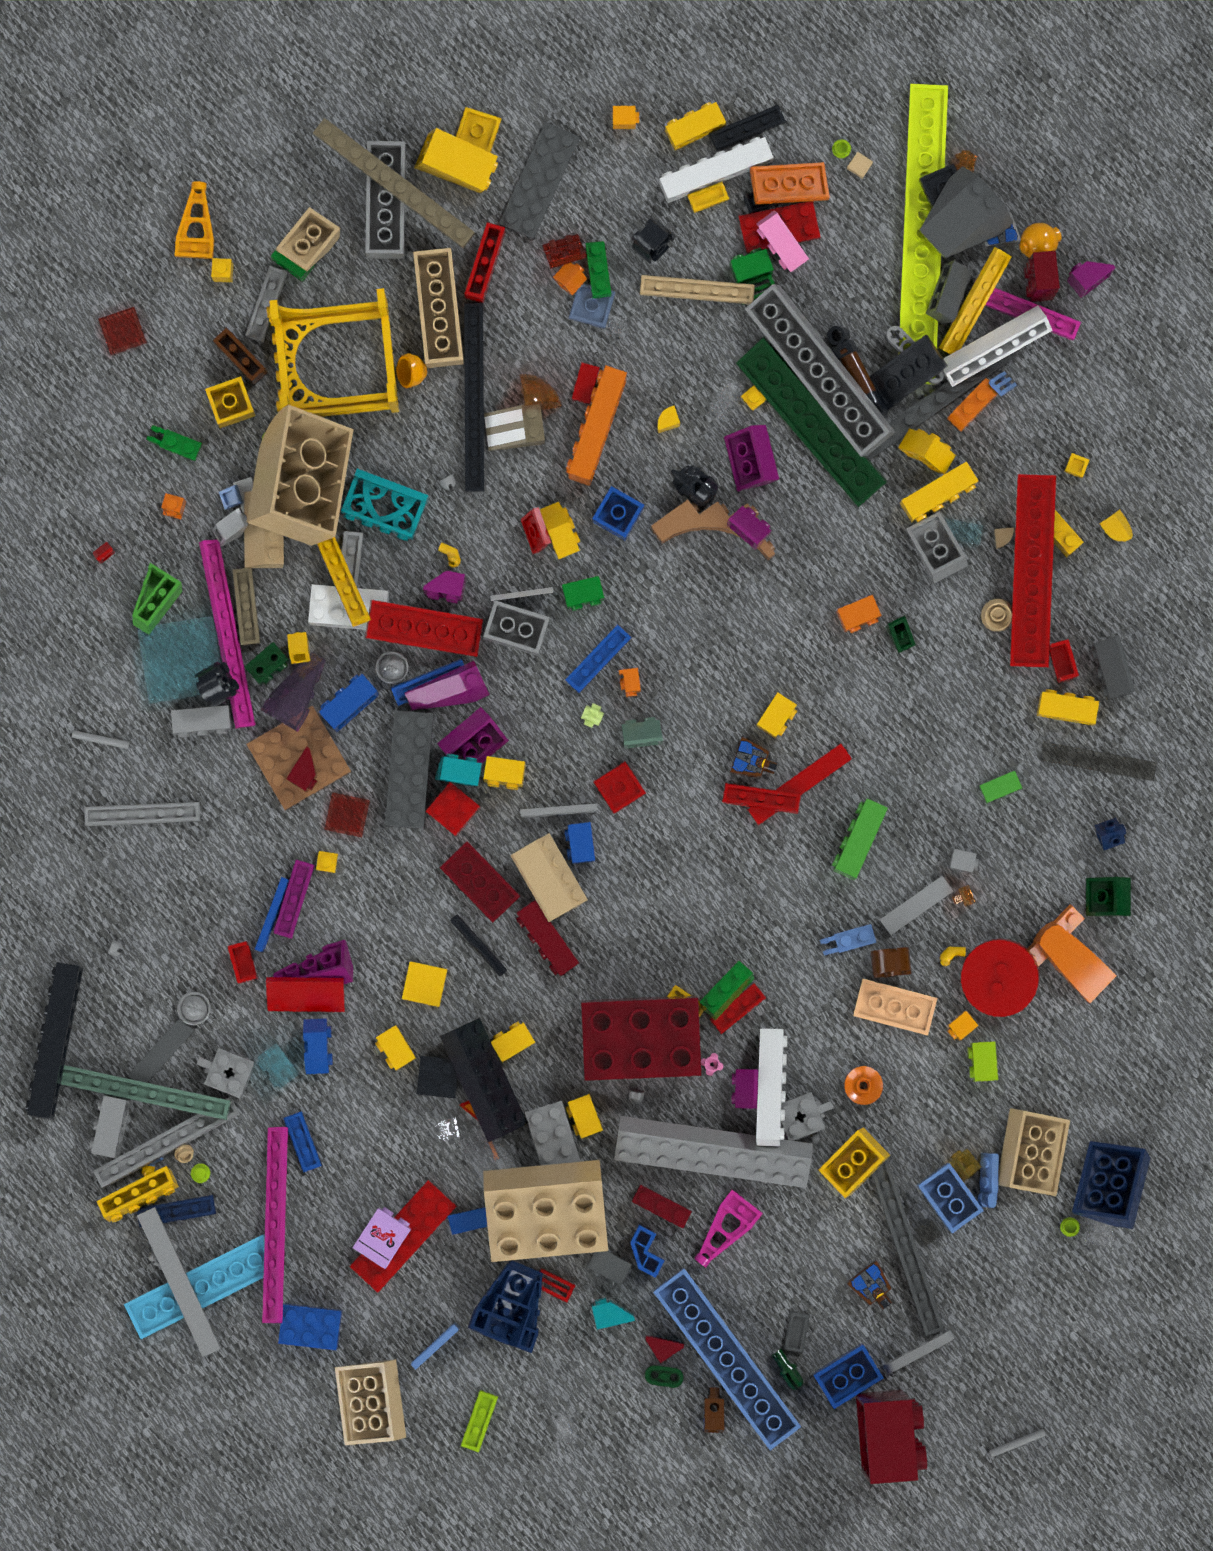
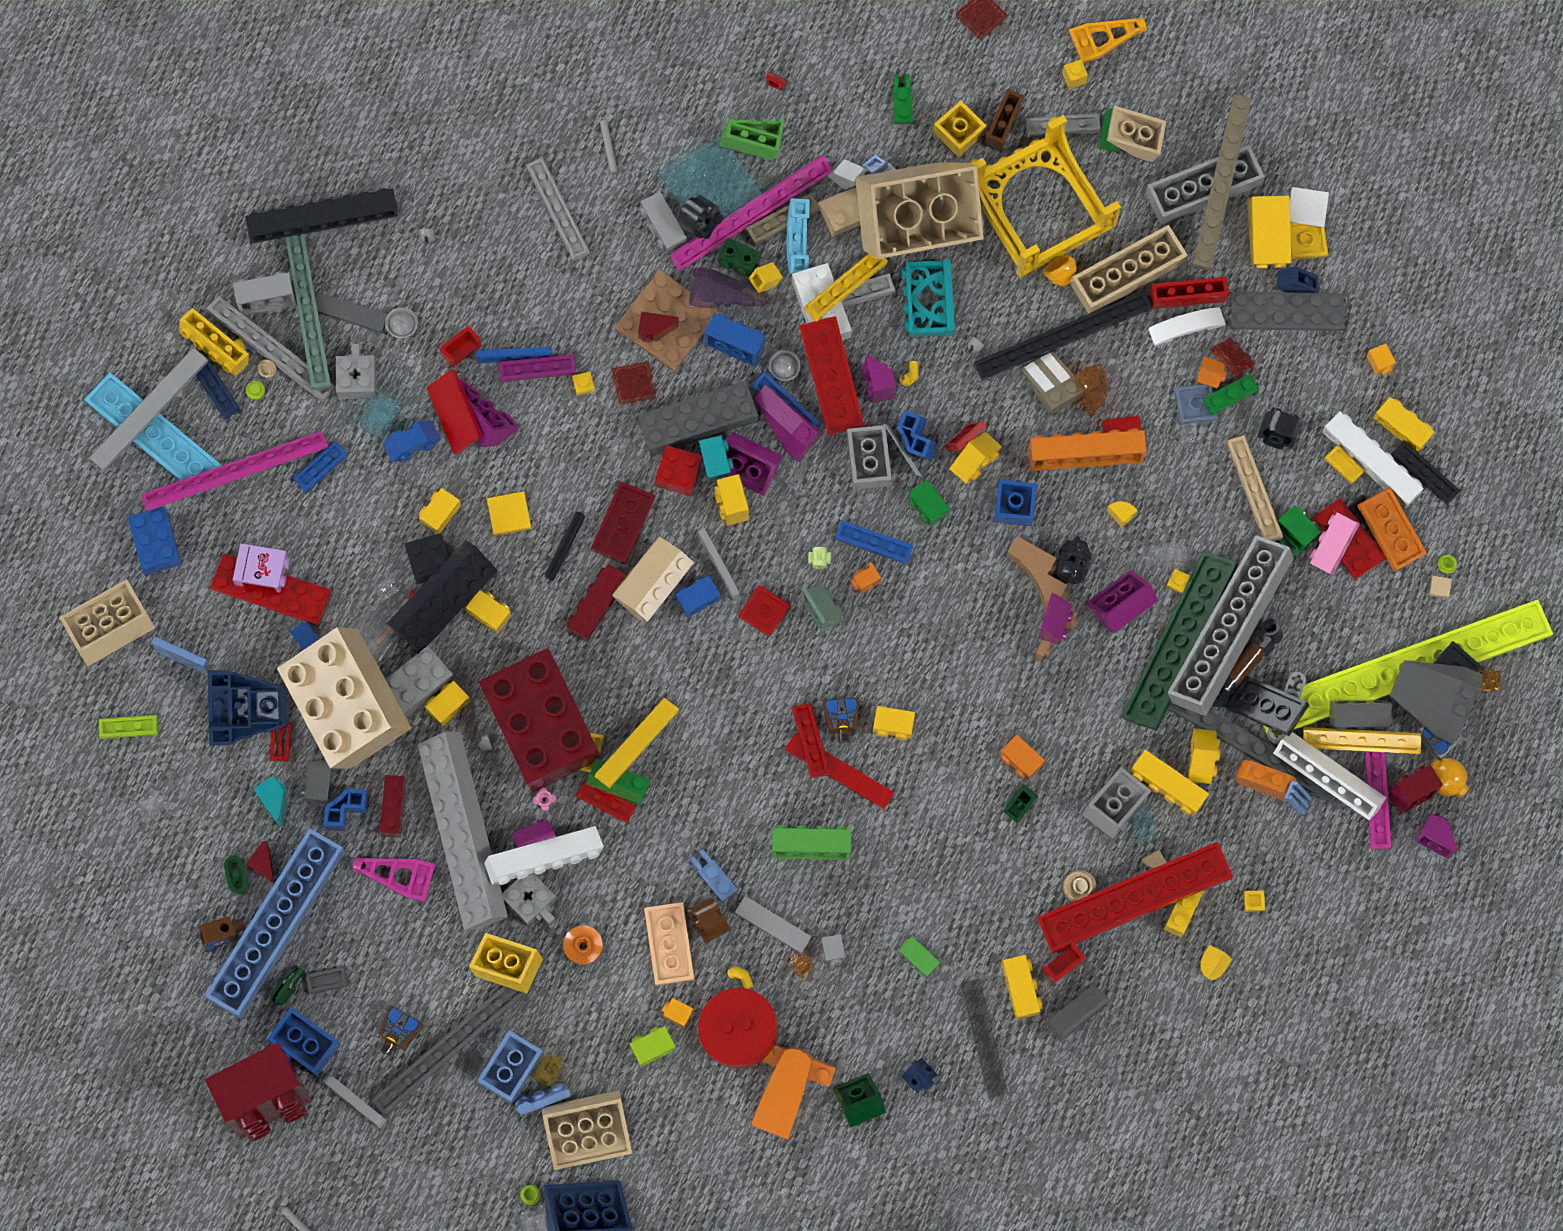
camera: 65 degrees right, 10 degrees down
(173, 506) = (844, 120): orange brick -> none
(270, 601) = (797, 235): none -> medium azure slope
(446, 113) = (1308, 206): none -> white sticker
(507, 578) = (911, 428): none -> blue brick
(513, 279) = (1186, 324): none -> white slope
(516, 158) = (1297, 281): none -> dark blue slope
(699, 958) = (636, 743): none -> yellow tile

